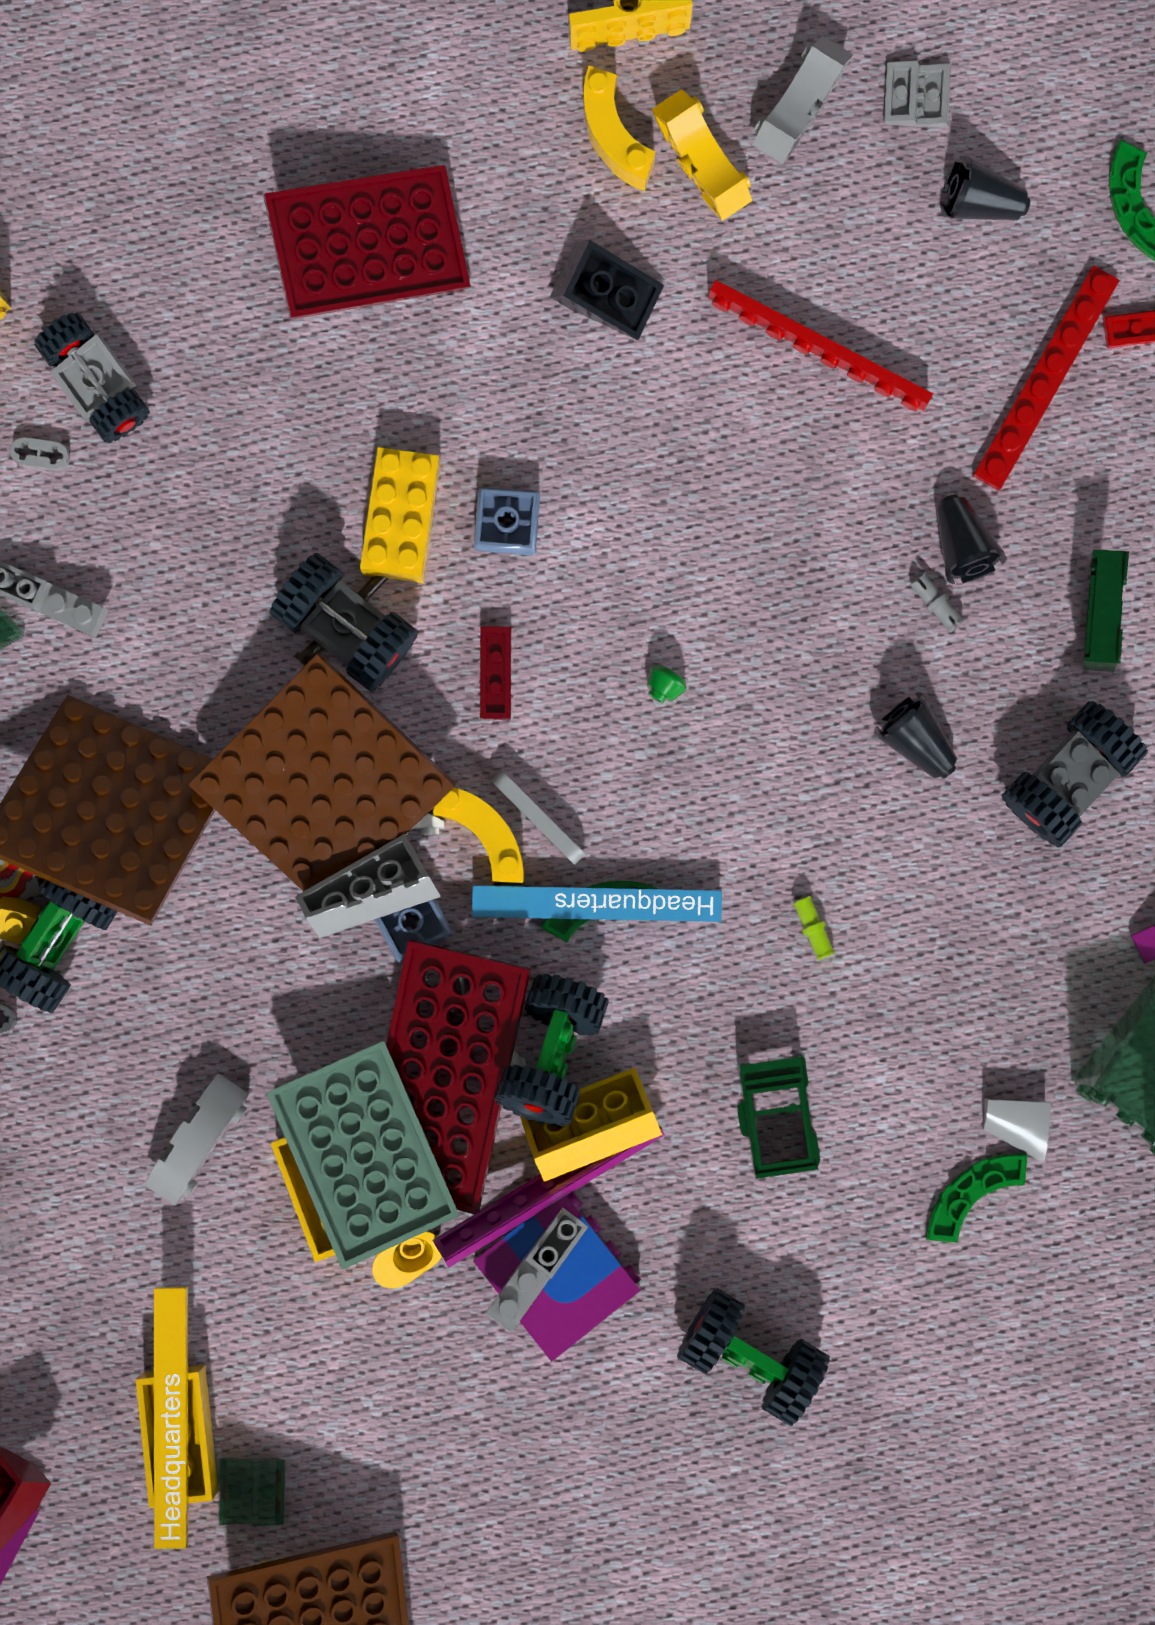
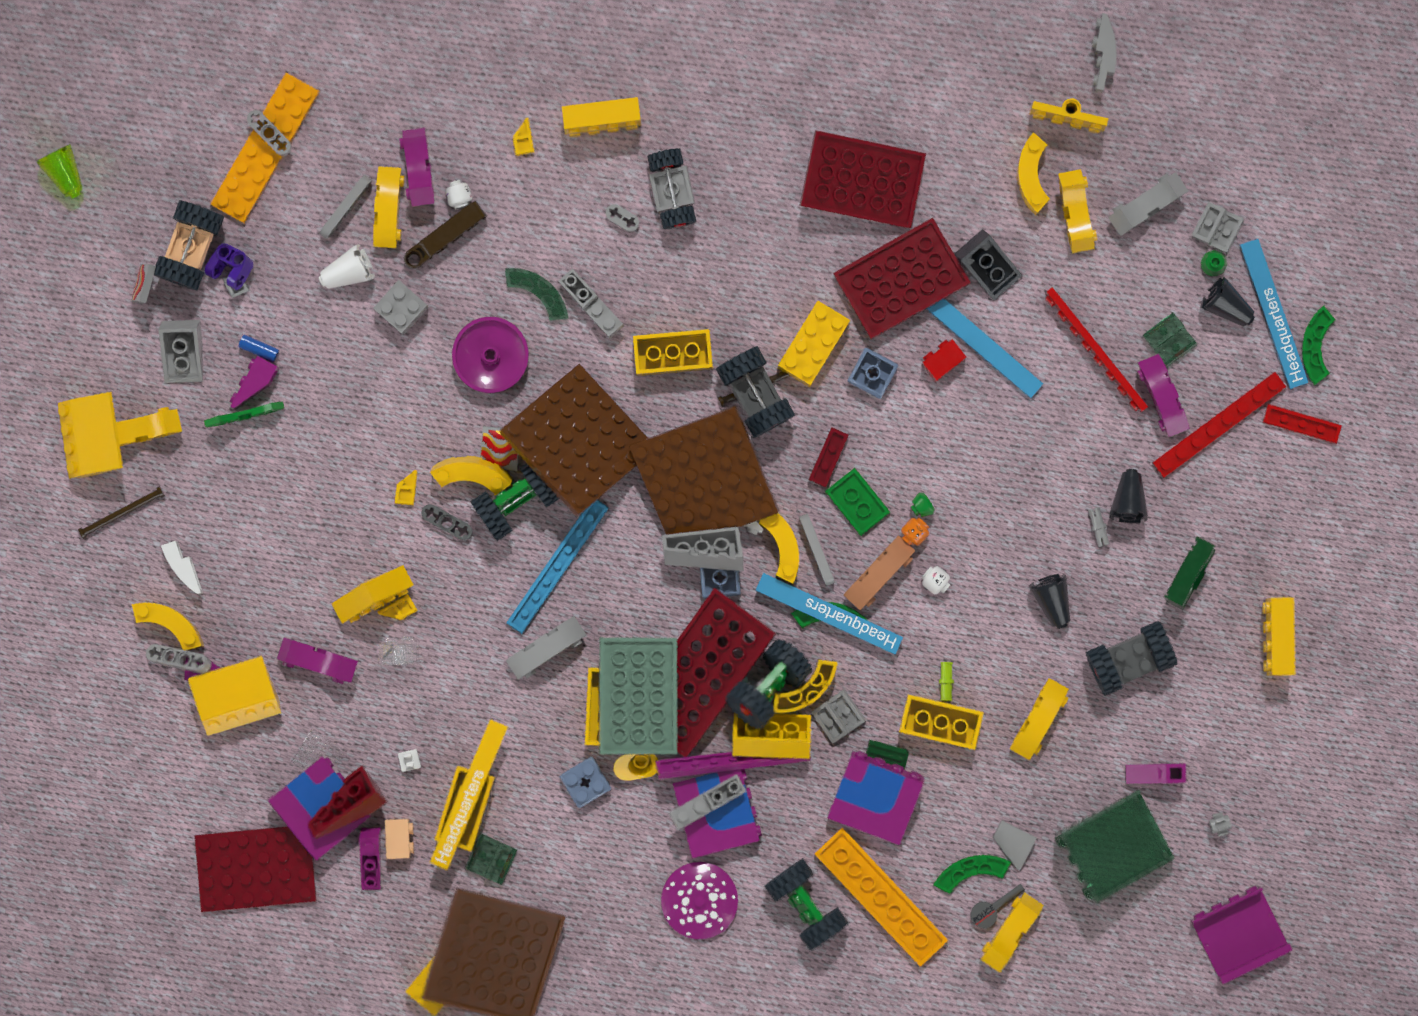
camera: 25 degrees right, 0 degrees up
(65, 1397) = (409, 760): none -> white tile
(67, 1571) = (370, 858): none -> magenta slope
(98, 1524) = (398, 838): none -> light nougat brick
(163, 1008) = (557, 566): none -> dark azure tile
(196, 618) = (672, 352): none -> yellow brick
(363, 1314) = (597, 786): none -> sand blue brick
(489, 364) = (901, 278): none -> dark red plate
(567, 720) = (857, 501): none -> green tile
(590, 1416) = (699, 900): none -> magenta dish
(602, 457) = (943, 360): none -> red brick
(617, 1033) = (809, 691): none -> yellow brick
(642, 408) = (986, 347): none -> dark azure tile
(645, 811) = (879, 572): none -> nougat brick
(671, 726) = (915, 531): none -> orange head
(677, 1049) = (838, 716): none -> light grey slope
(733, 785) = (936, 580): none -> white head
(787, 1148) = (876, 797): none -> magenta panel
(833, 992) = (941, 722): none -> yellow brick
(858, 1292) = (881, 897): none -> light orange plate
(919, 286) = (1170, 339): none -> clear green slope
(934, 148) = (1213, 269): none -> green cone
(949, 367) = (1164, 395): none -> magenta brick
(979, 906) = (1039, 719): none -> yellow brick
(1021, 1248) = (985, 914): none -> dark grey piece
(1053, 183) = (1273, 313): none -> dark azure tile
(1070, 1279) = (1006, 939): none -> yellow brick

